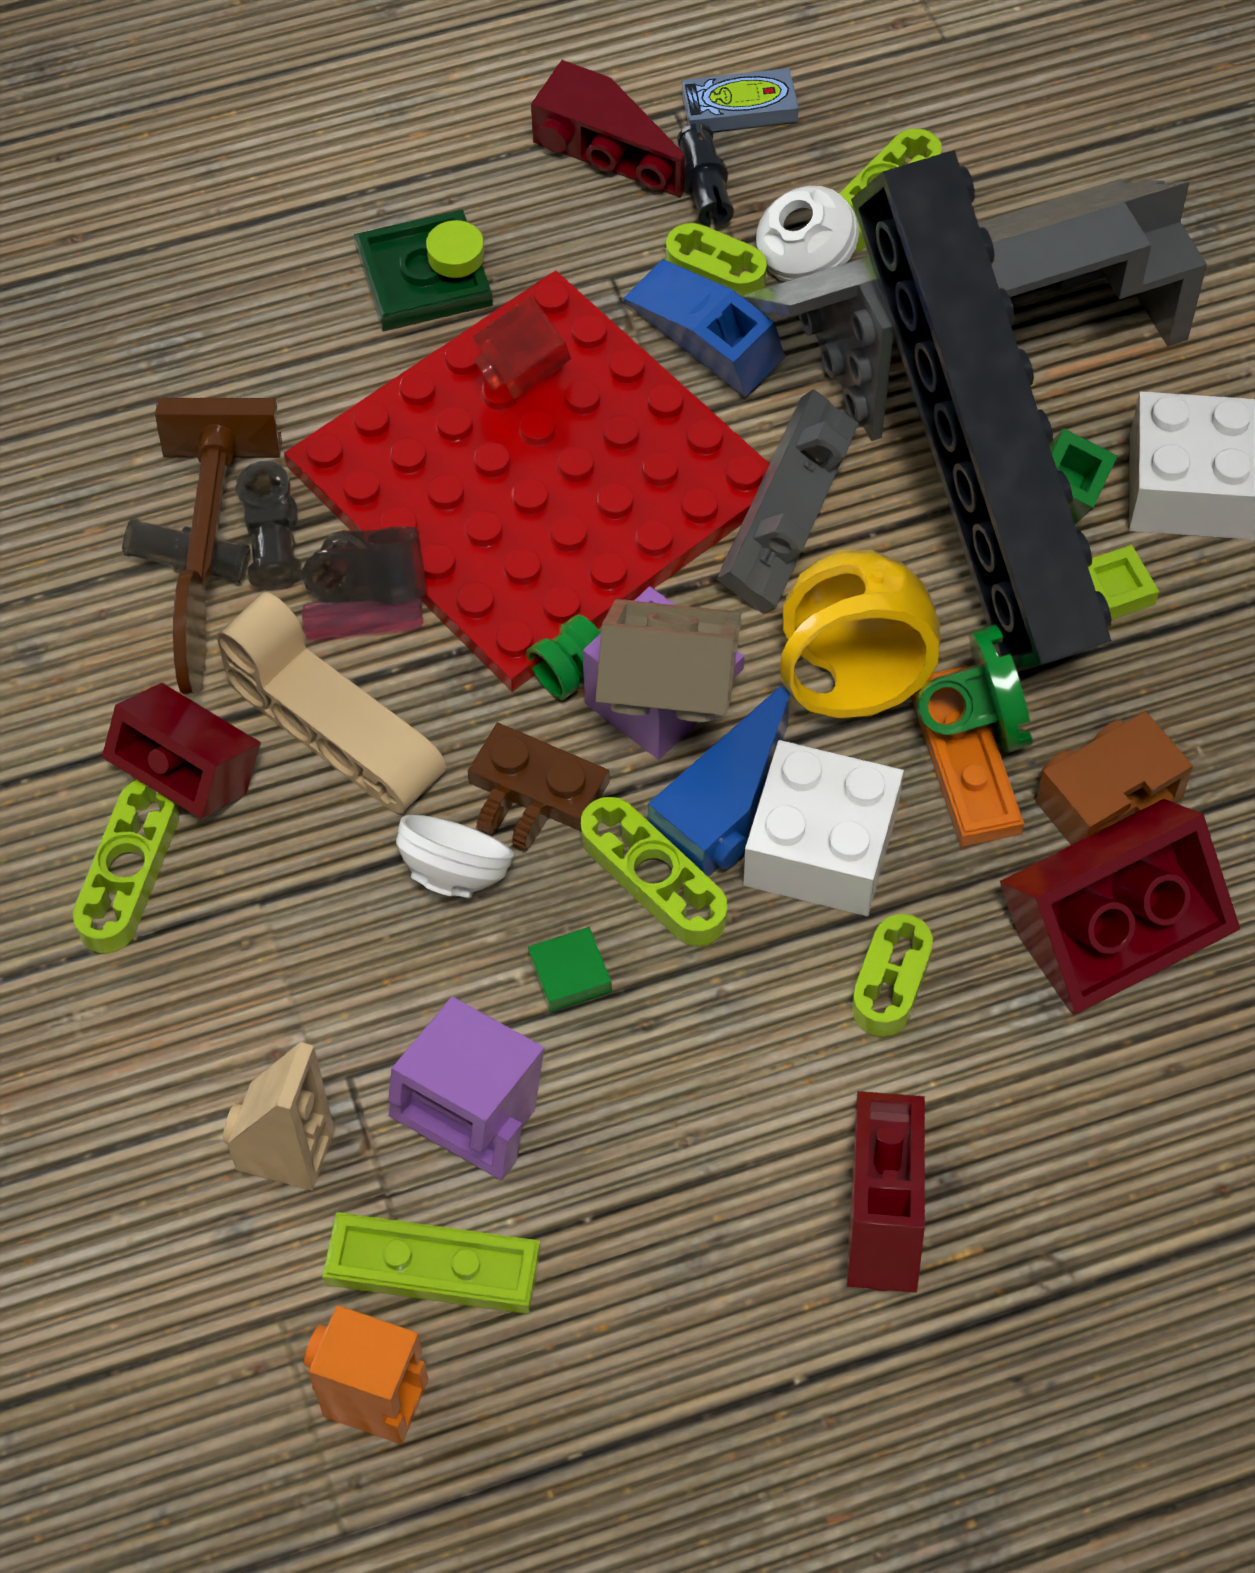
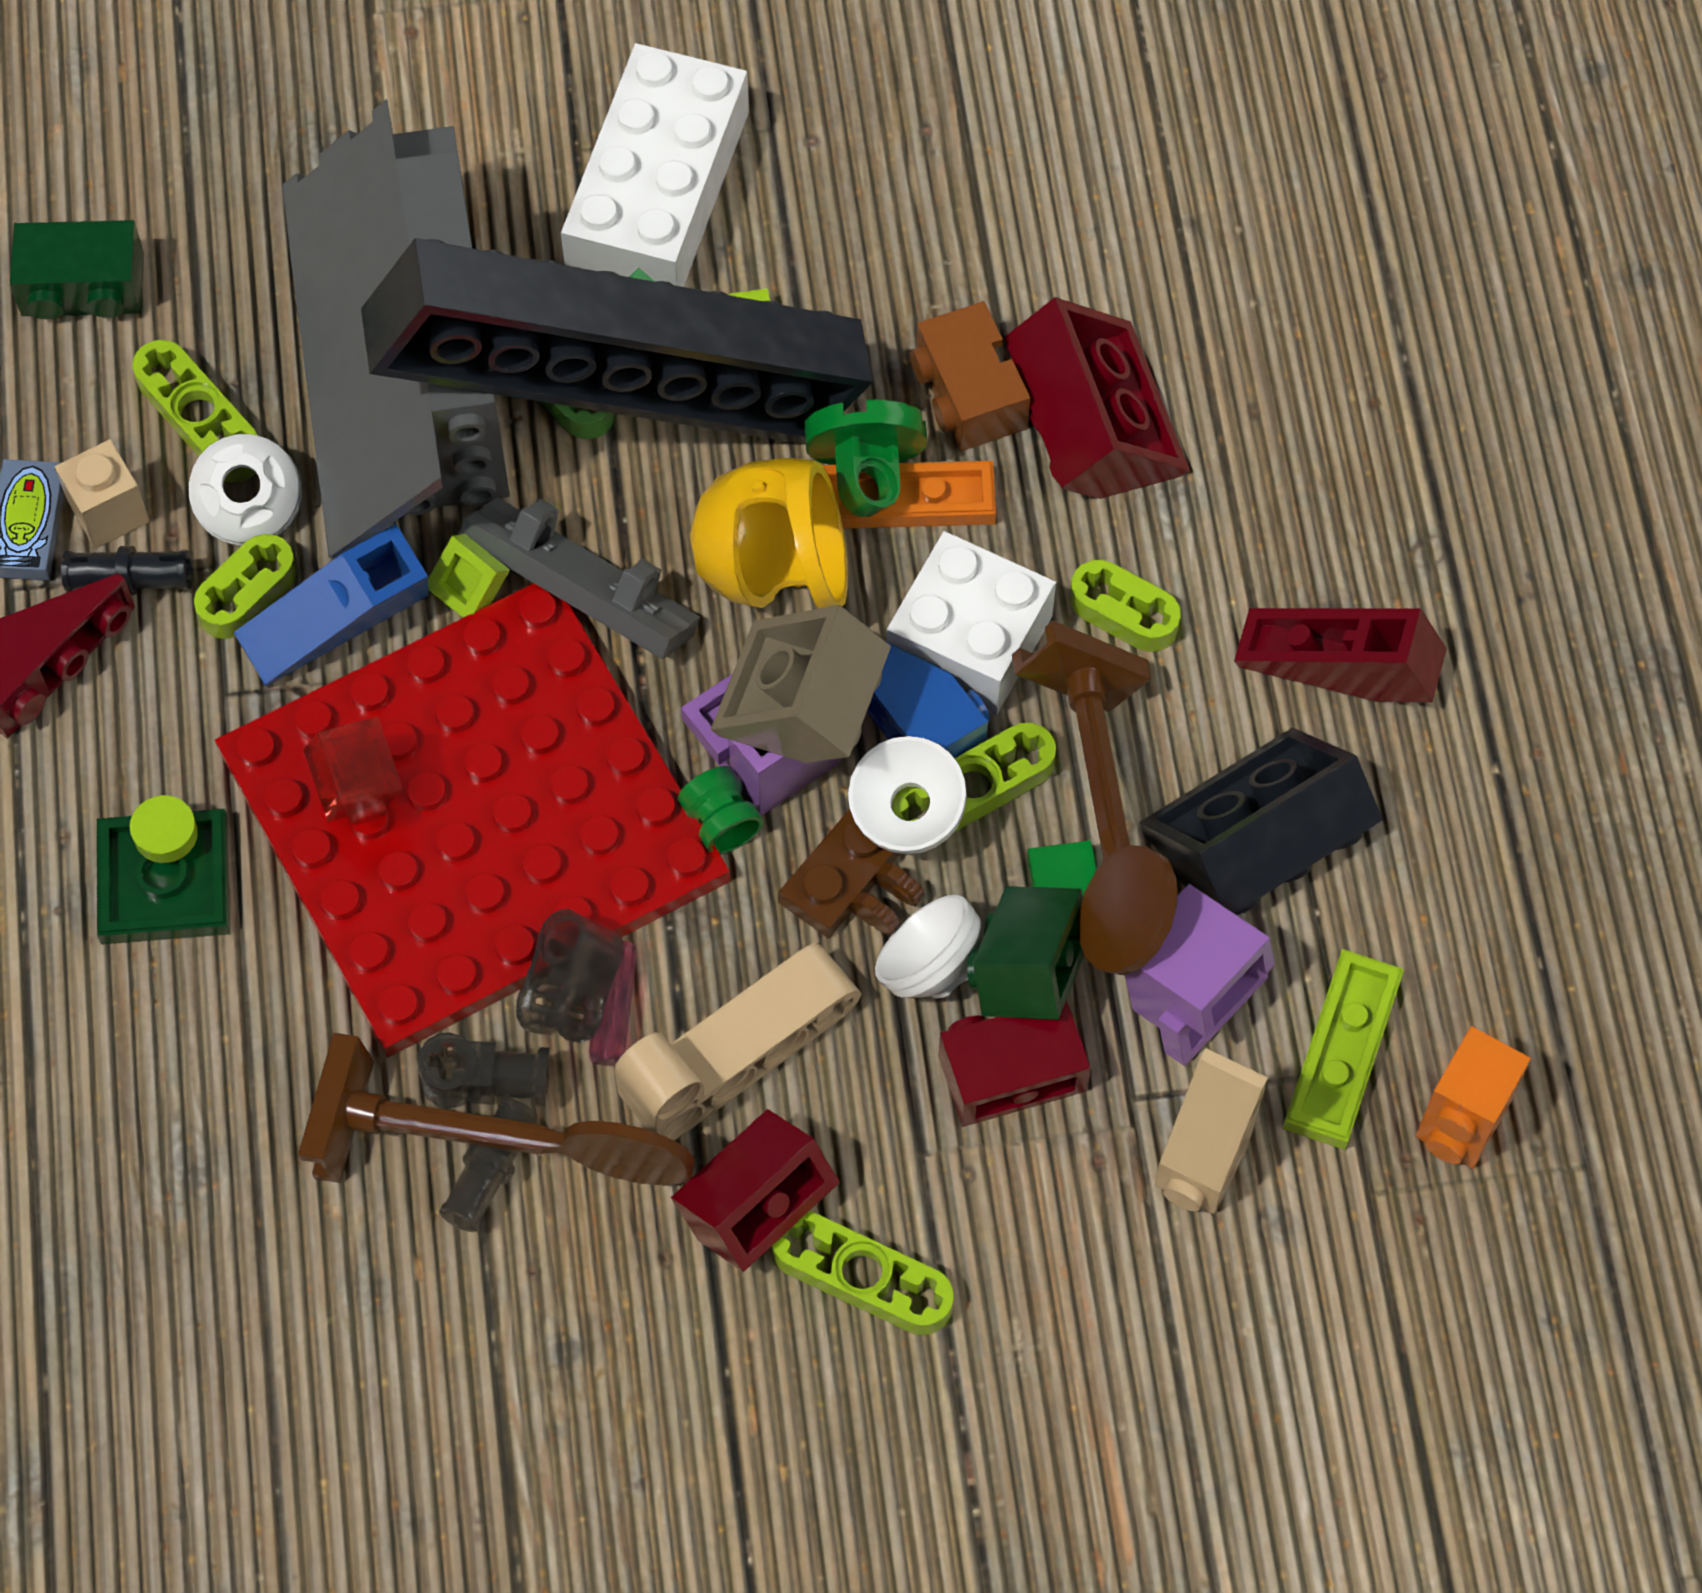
camera: 80 degrees left, 5 degrees up
(355, 948) = (1011, 1064): none -> dark red brick
(456, 930) = (1028, 953): none -> dark green brick
(593, 770) = (899, 765): none -> white piece
(664, 1137) = (1265, 819): none -> black slope
(765, 412) = (466, 576): none -> lime tile
(769, 135) = (102, 493): none -> tan brick
(778, 926) = (1135, 888): none -> reddish brown piece
(993, 70) = (77, 268): none -> dark green brick

